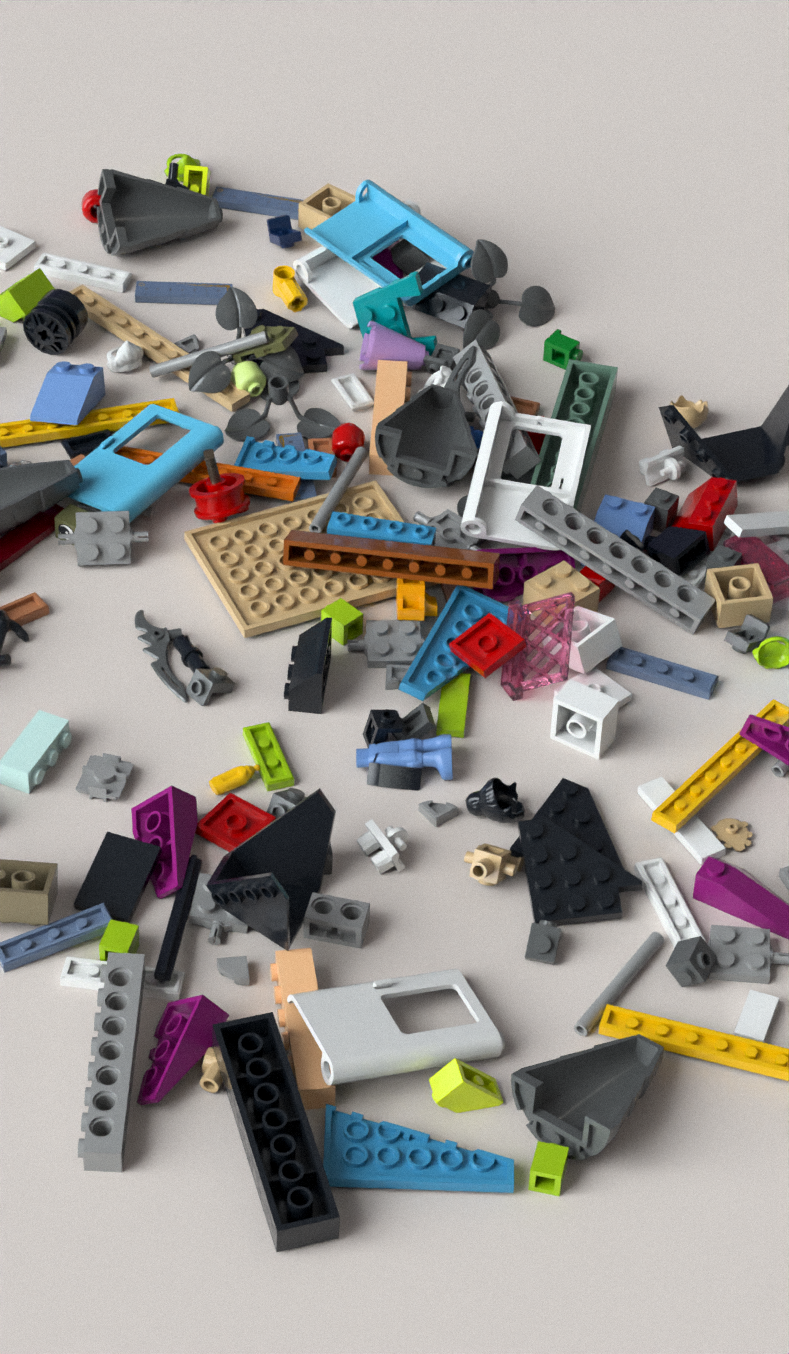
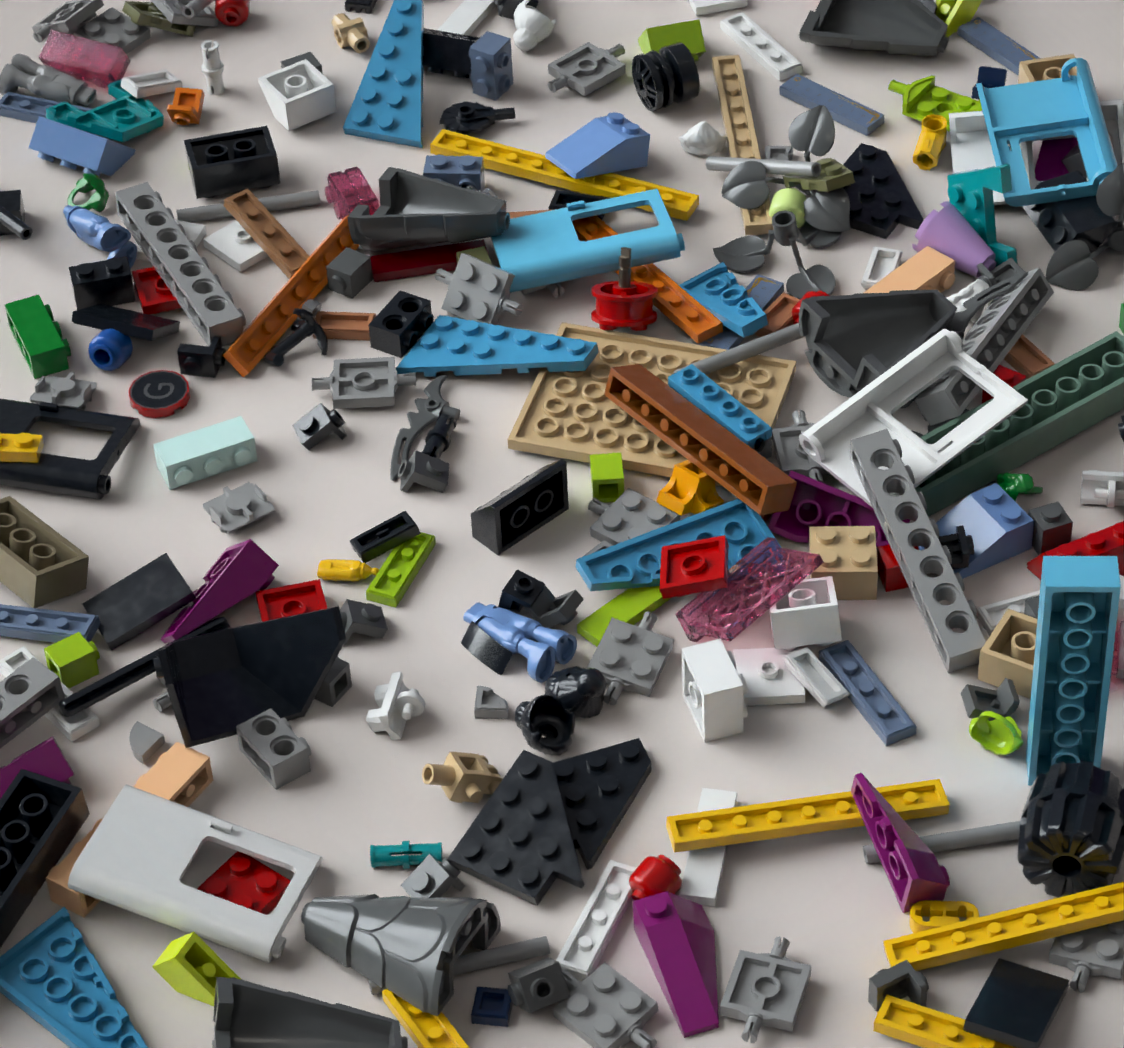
camera: 45 degrees right, 0 degrees up
(67, 589) = (400, 324): none -> black brick
(88, 644) = (363, 382): none -> light grey plate
(93, 691) = (319, 424): none -> black bracket
(153, 576) = (487, 348): none -> dark azure wing
(242, 740) = (384, 537): none -> black tile
(253, 261) = (925, 98): none -> lime plate
(423, 1013) = (247, 883): none -> red plate
(491, 944) = (381, 854): none -> teal pin
(492, 764) = (578, 690): none -> black piece
(496, 730) = (631, 657): none -> light grey plate
(581, 986) = (402, 940): none -> dark grey cone
(613, 488) = (1017, 483): none -> green piece
(627, 679) = (815, 677): none -> white tile
(668, 995) = (491, 1007): none -> dark blue tile
(678, 548) = (1012, 577): black torso -> none
(681, 858) = (655, 877): none -> red head
(733, 833) = (744, 889): tan piece -> none

